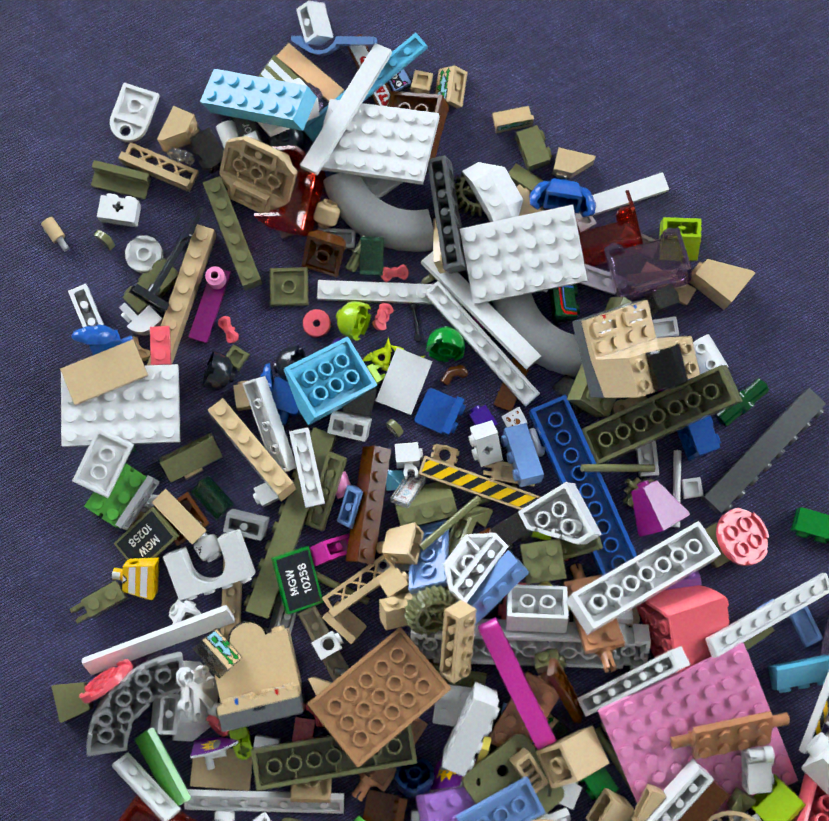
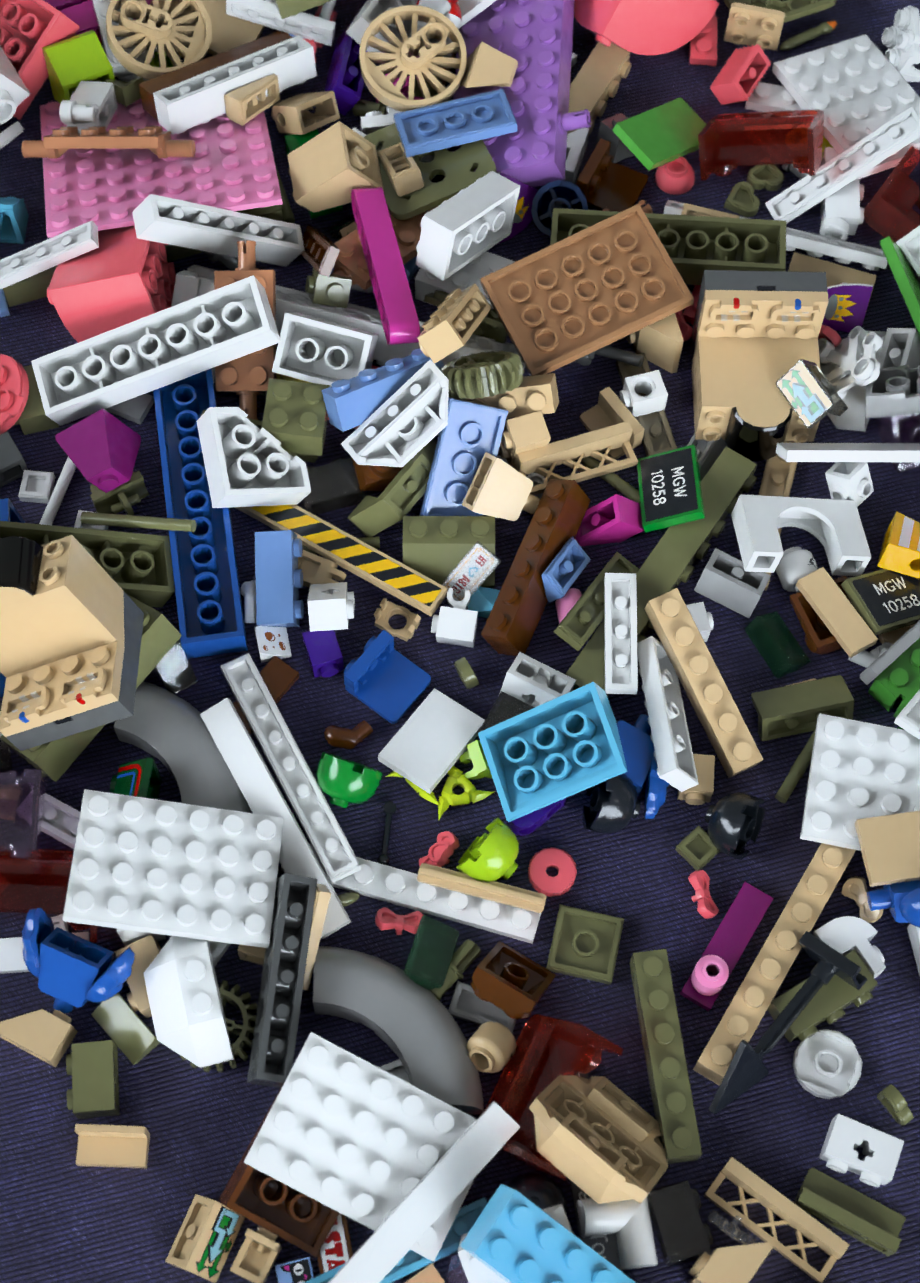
camera: 165 degrees left, 15 degrees down
(160, 345) = (825, 875): coral plate -> none
(186, 420) = (796, 771): none -> olive piece
(344, 298) = (490, 891): none -> tan axle
(449, 523) = (418, 502): olive bar -> none

